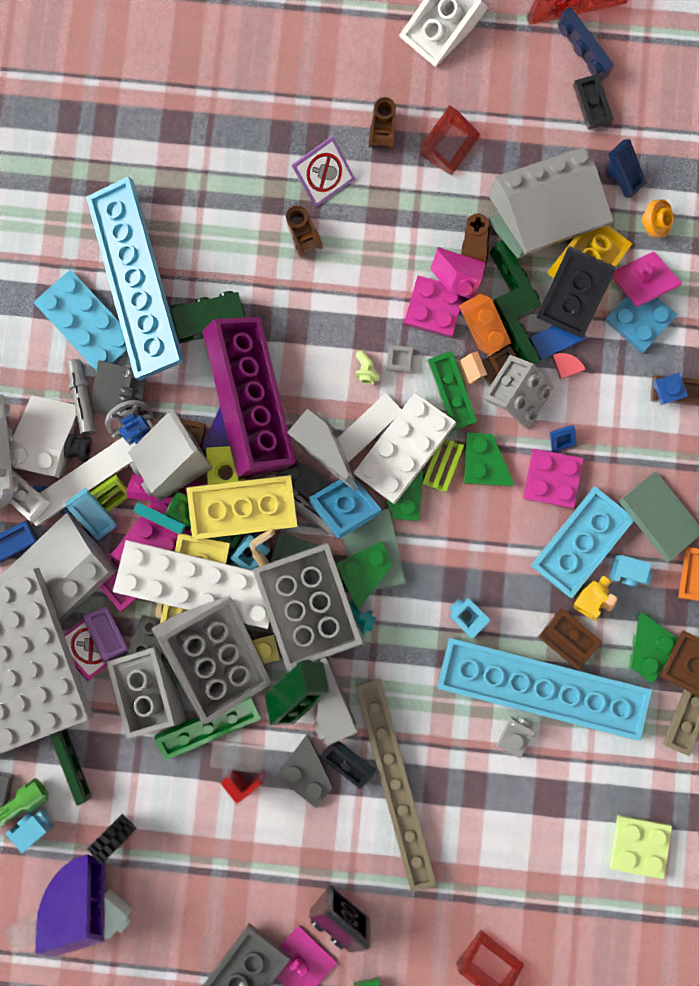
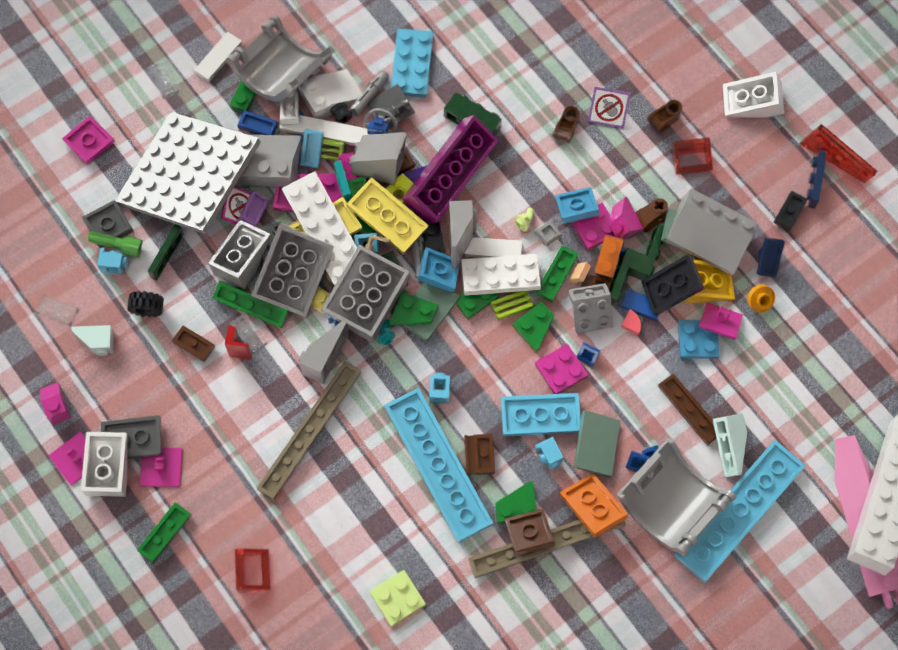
camera: 40 degrees right, 15 degrees down
(72, 909) = (90, 314): dark purple brick -> none
(134, 279) = (457, 64): plate -> none
(198, 821) = (193, 343): none -> reddish brown plate
(297, 693) = (312, 326): dark green brick -> none
(306, 774) = (271, 378): dark grey wing -> none
(342, 921) = (206, 459): black slope -> none
(348, 763) = (297, 393): black plate -> none
(400, 304) = (577, 205): none -> dark azure plate
(516, 736) = (397, 473): light grey bracket -> none
(595, 597) = (514, 446): yellow piece -> none
(670, 388) = (672, 386): blue plate -> none

